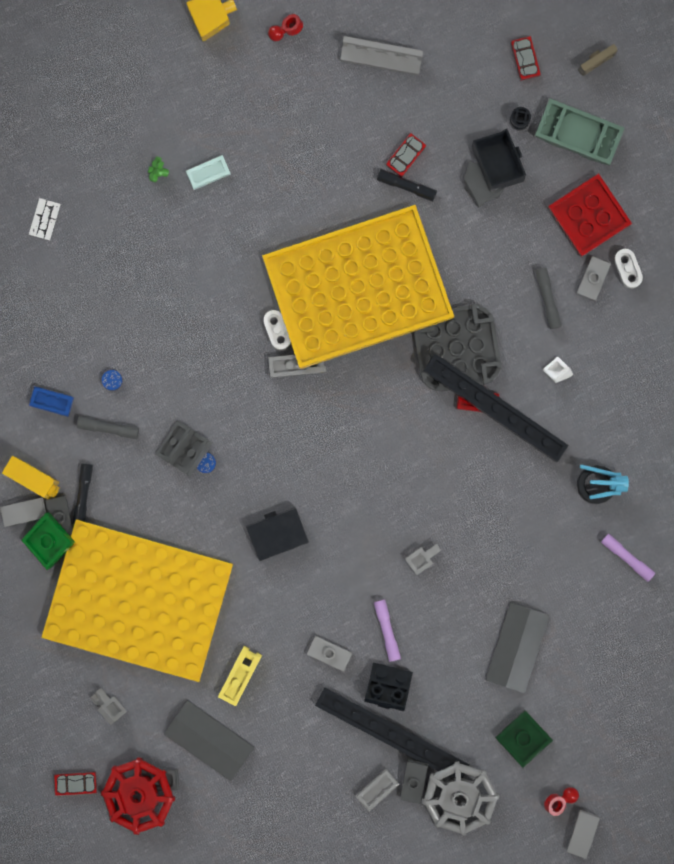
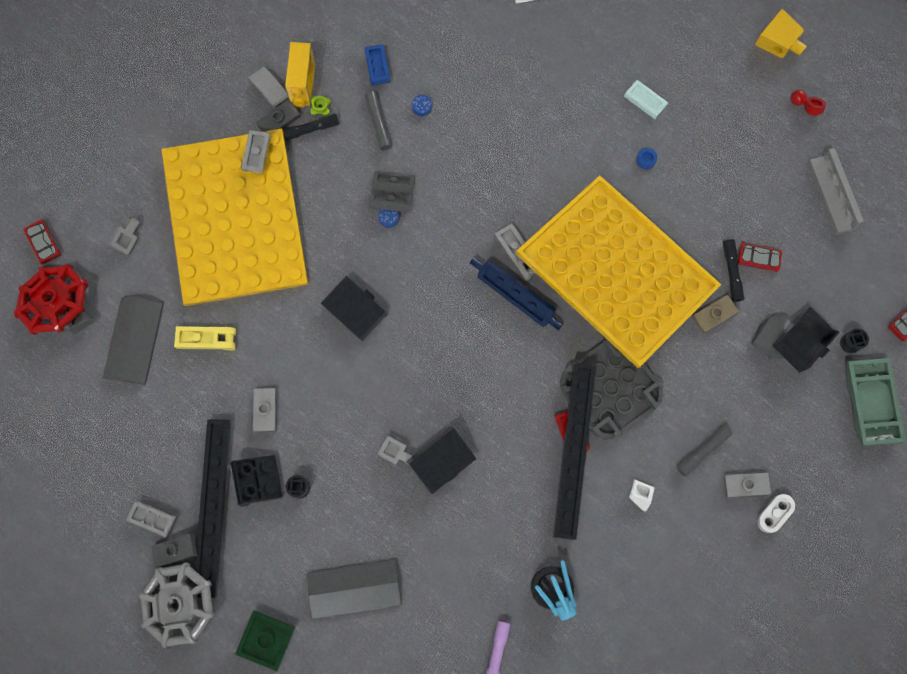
camera: 60 degrees right, 10 degrees down
(48, 541) = (251, 115): green plate -> none
(64, 467) = (320, 100): none -> lime plate
(91, 553) = (256, 152): none -> light grey plate
(157, 170) = (624, 57): bright green plant -> none
(265, 203) = (646, 158): none -> blue tile
(276, 330) = (537, 218): white plate -> none
(334, 386) = (516, 293): none -> dark blue plate
(384, 619) = (322, 444): lavender piece -> none
(409, 652) = (301, 487): none -> black wheel
(437, 222) = (715, 314): none -> dark tan plate
(448, 523) = (441, 460): none -> black container
(589, 215) = (804, 451): red plate -> none

